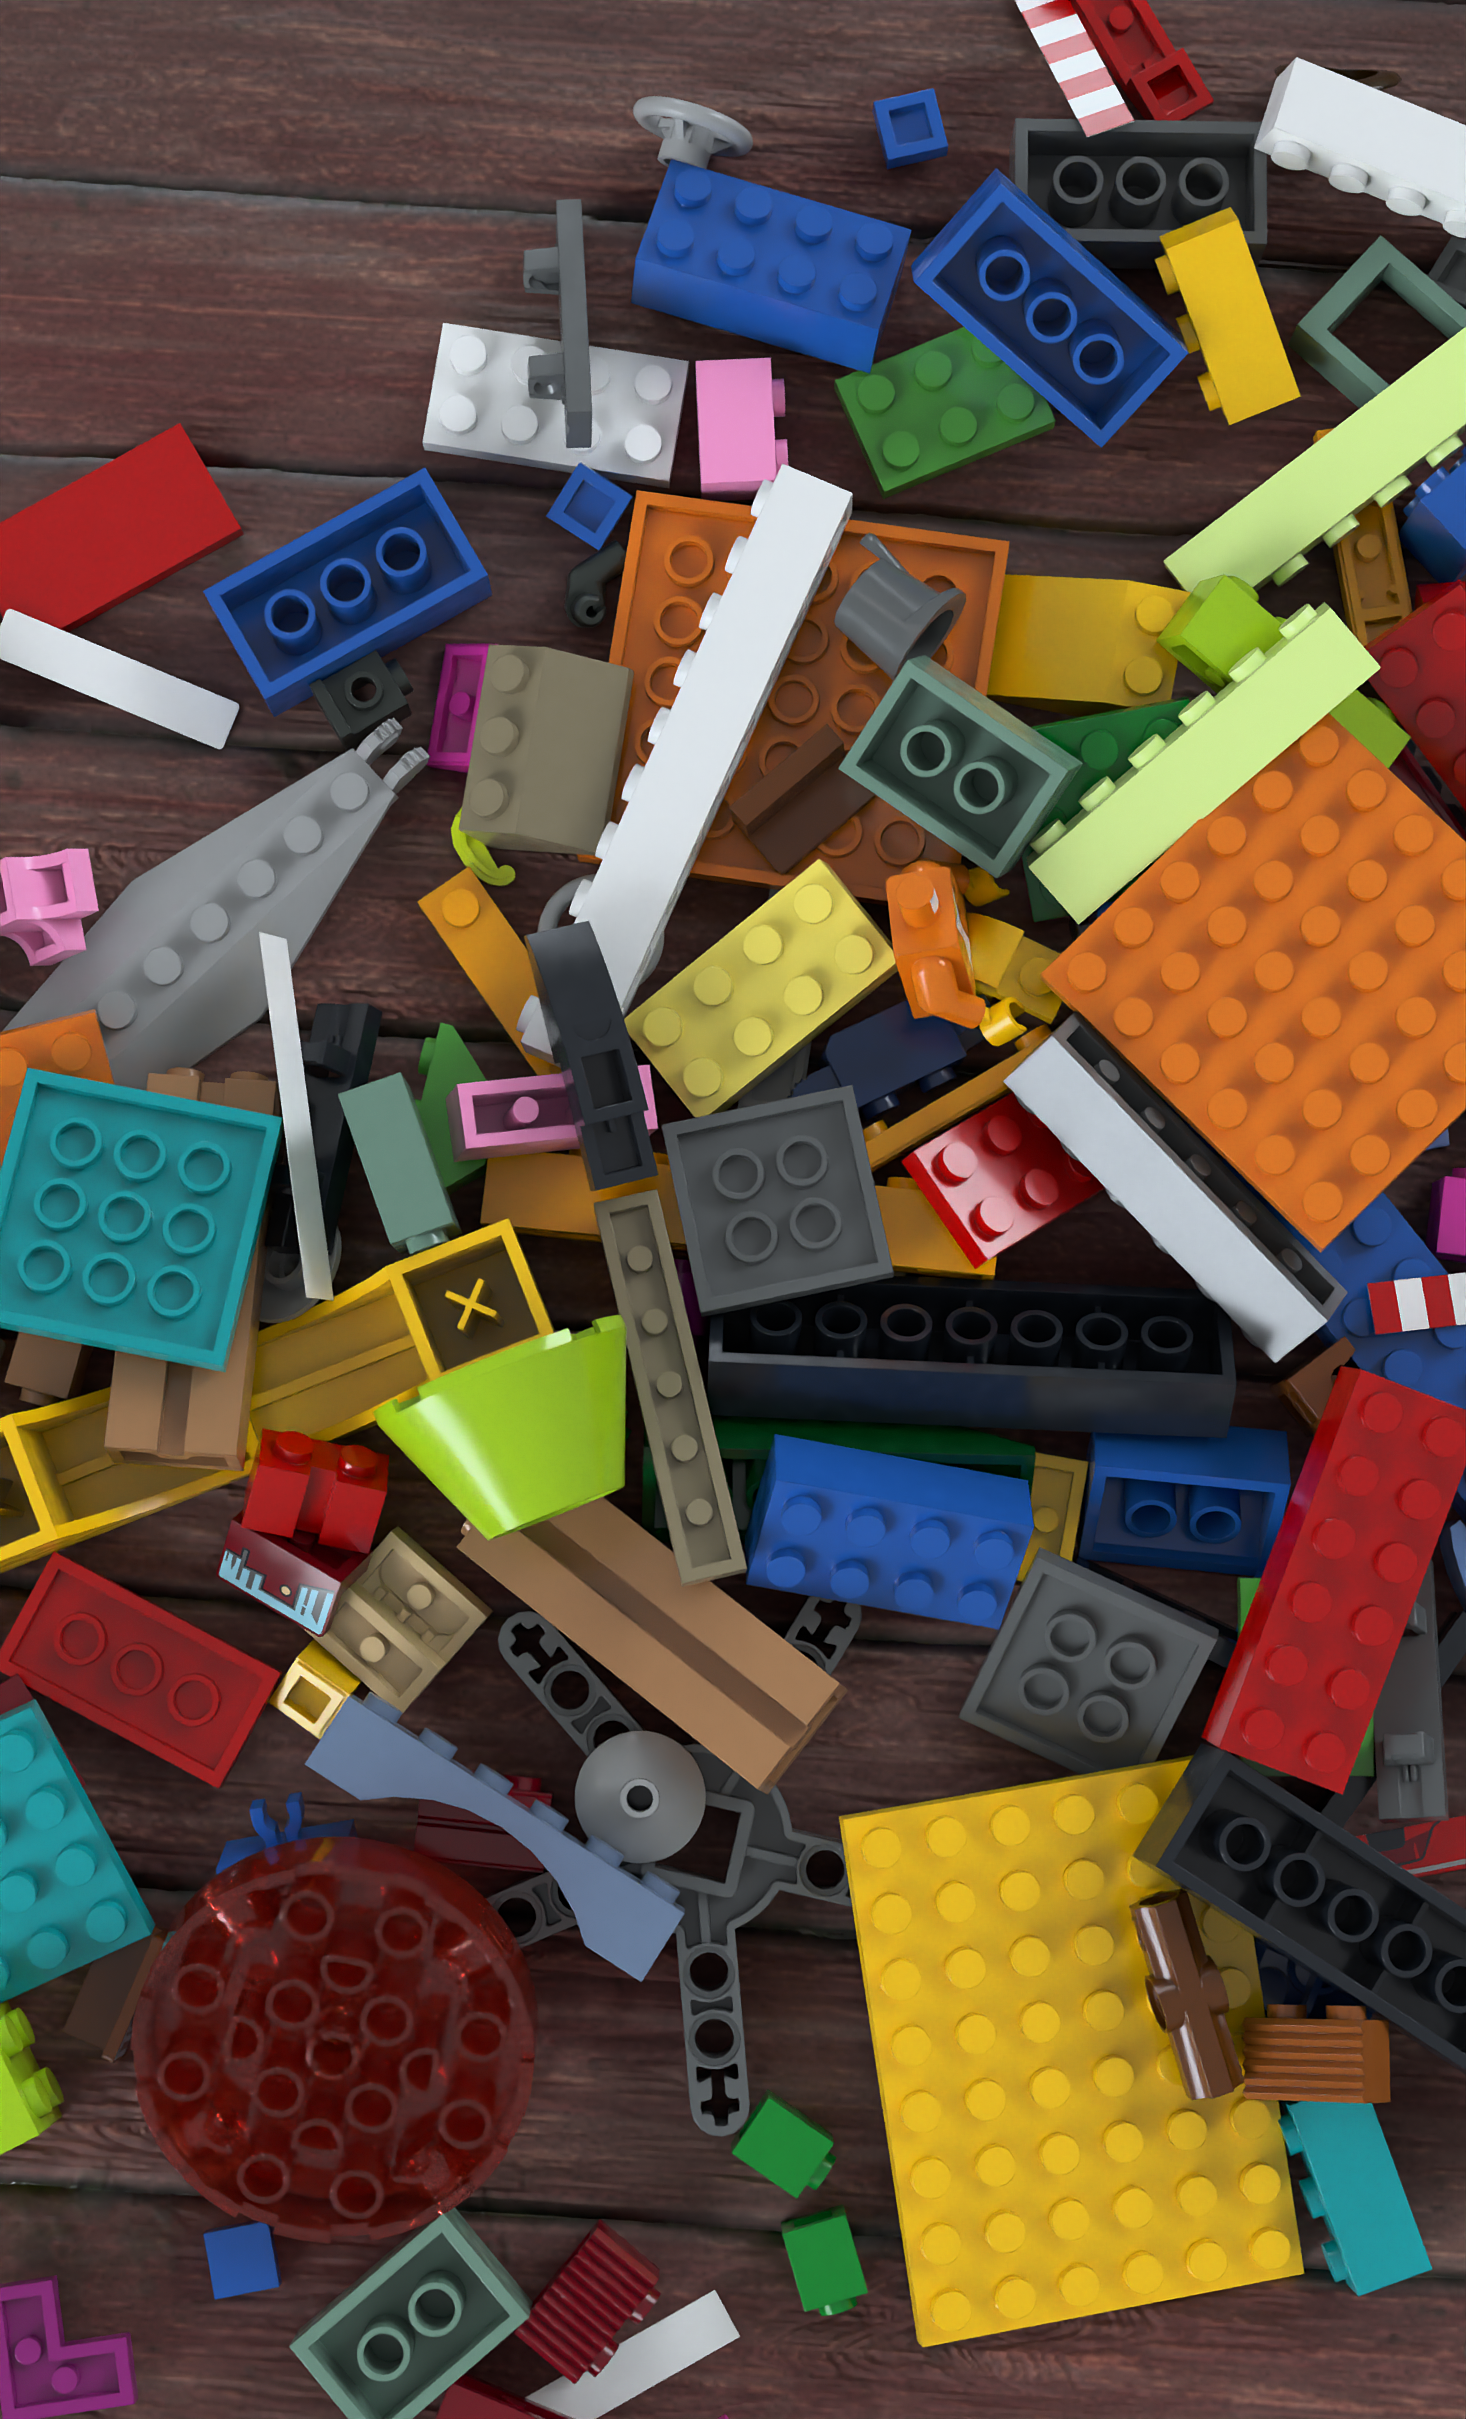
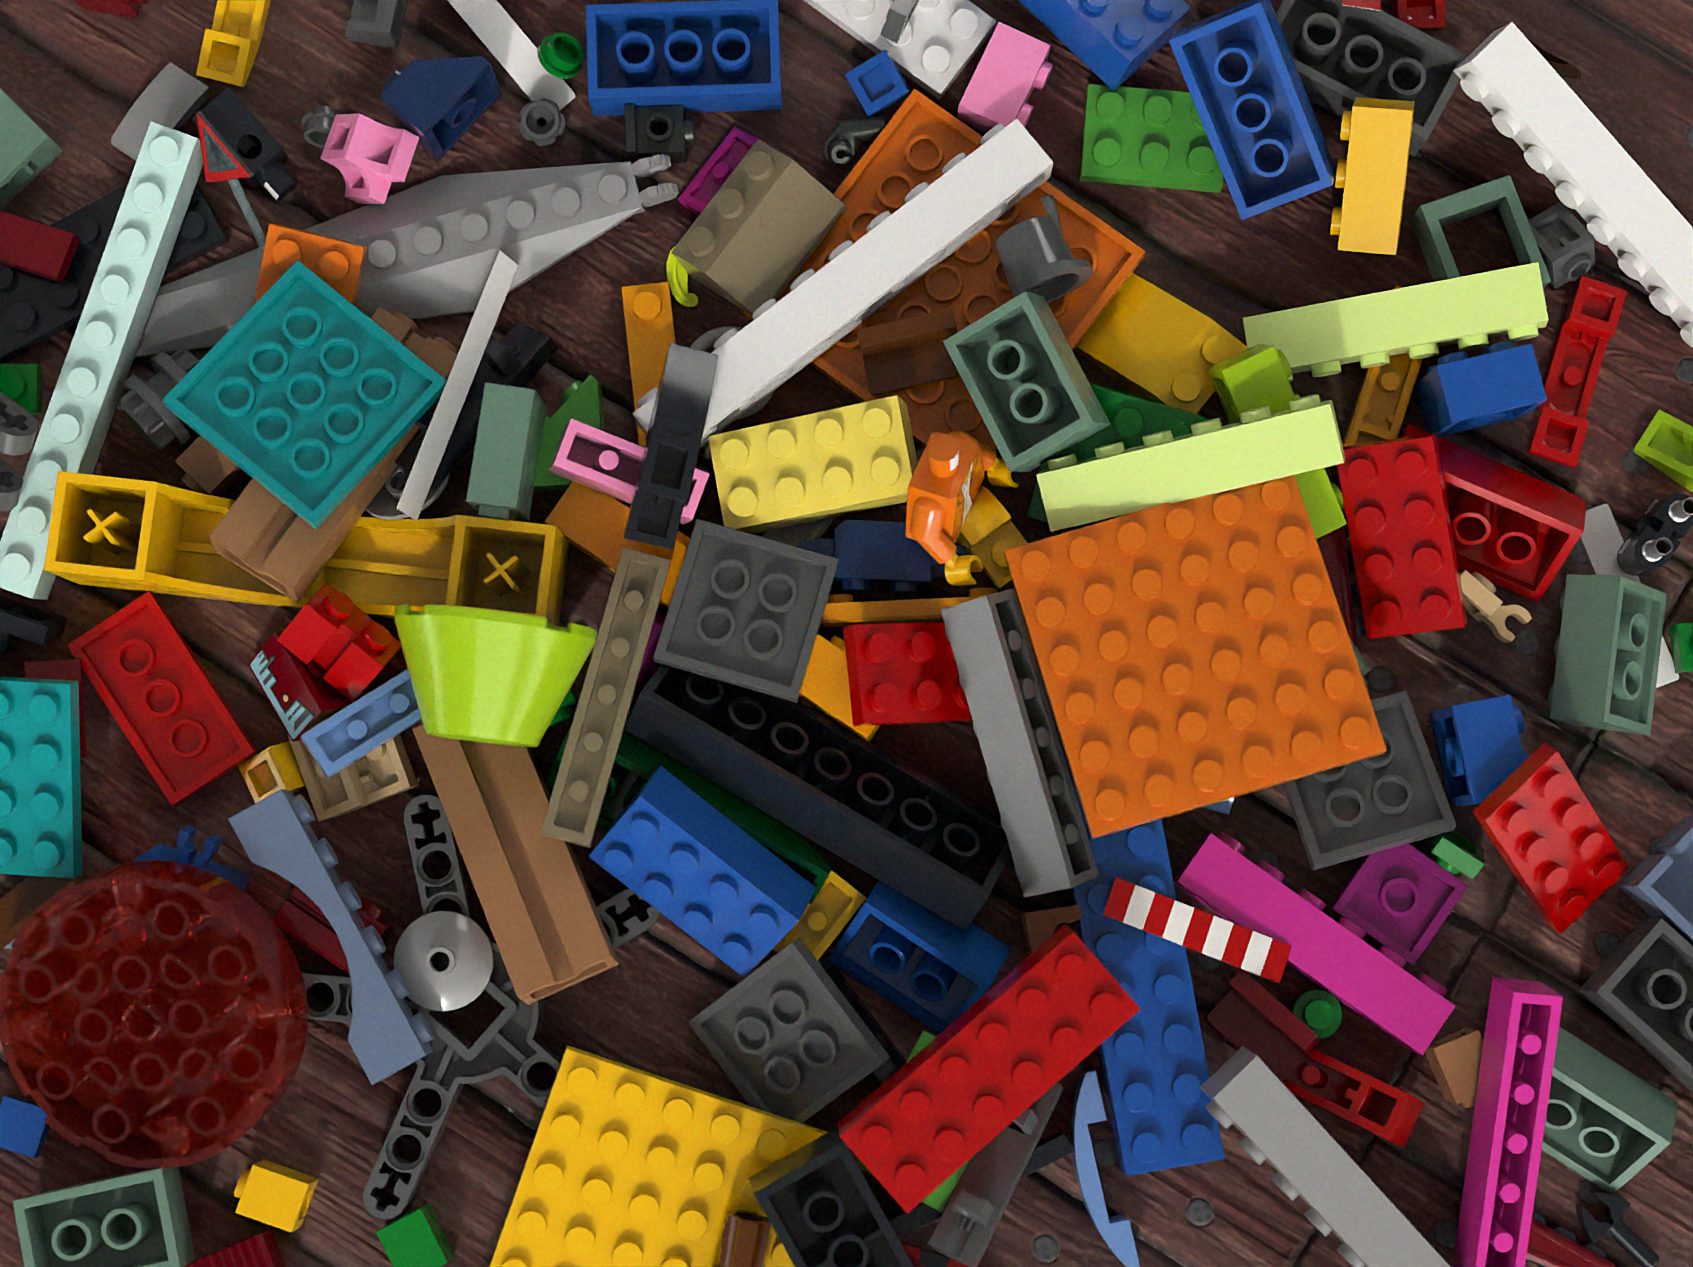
camera: 30 degrees right, 0 degrees up
(87, 791) = (440, 99): none -> dark blue slope
(198, 665) = (561, 55): none -> green plate
(217, 739) = (532, 113): none -> dark grey plate
(400, 1567) = (363, 725): none -> medium blue plate
(586, 2176) = (275, 1195): none -> yellow brick

